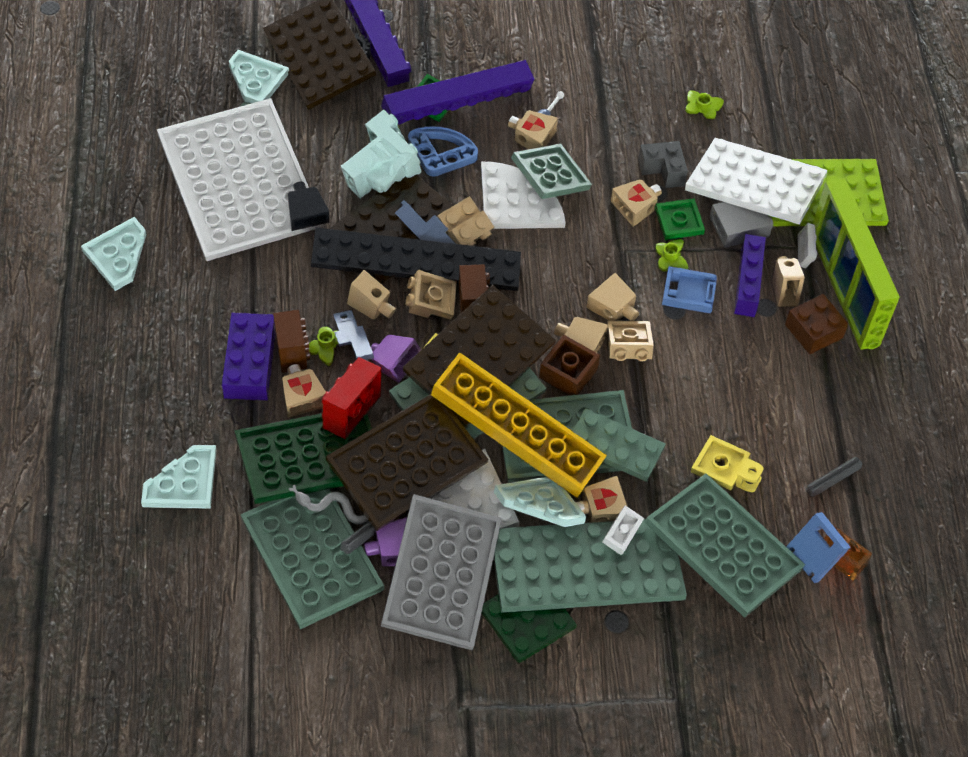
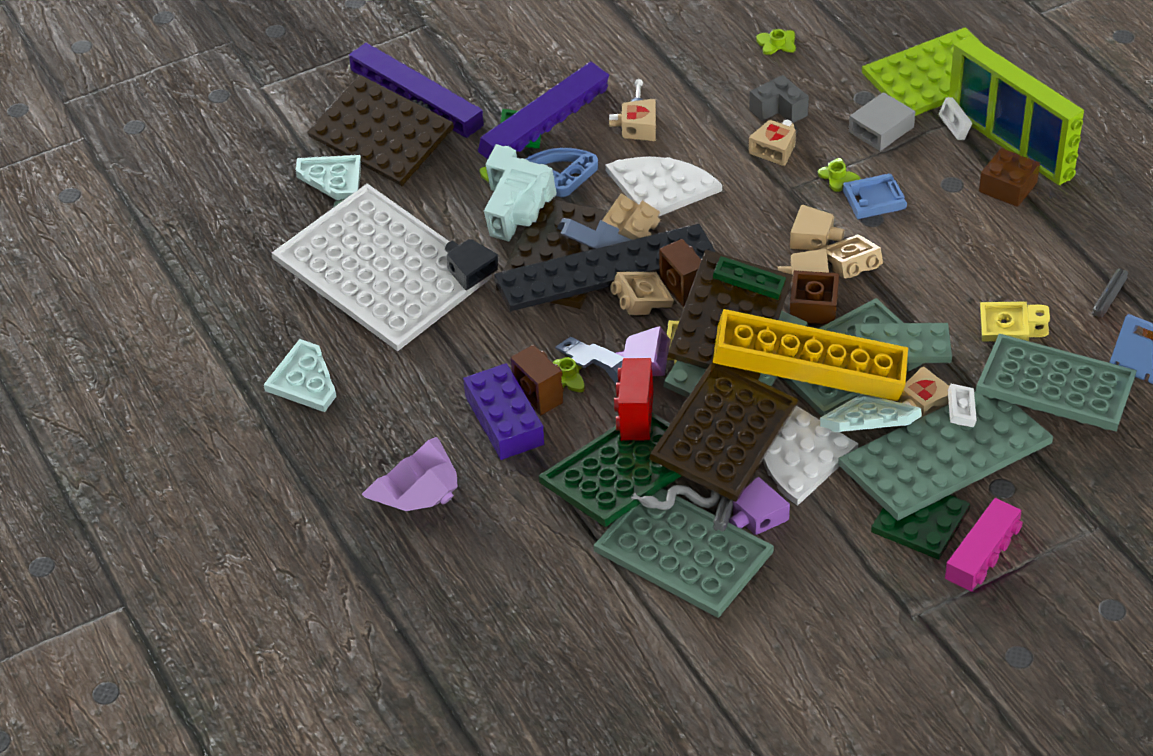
camera: 20 degrees left, 10 degrees down
(141, 389) = (417, 480): none -> lavender brick
(183, 481) = (516, 542): light aqua plate -> none
(302, 391) = (577, 420): tan torso -> none
(370, 297) = (585, 314): tan torso -> none
(441, 572) = (821, 509): light grey plate -> none
(510, 328) = (749, 277): none -> dark green plate
(551, 171) = (679, 146): sand green plate -> none
(560, 670) = (983, 544): none -> dark pink brick
(679, 219) = (825, 141): green plate -> none
(750, 275) = (922, 161): dark purple brick -> none
(756, 180) = (875, 81): white plate -> none
(788, 272) = (960, 152): tan torso -> none

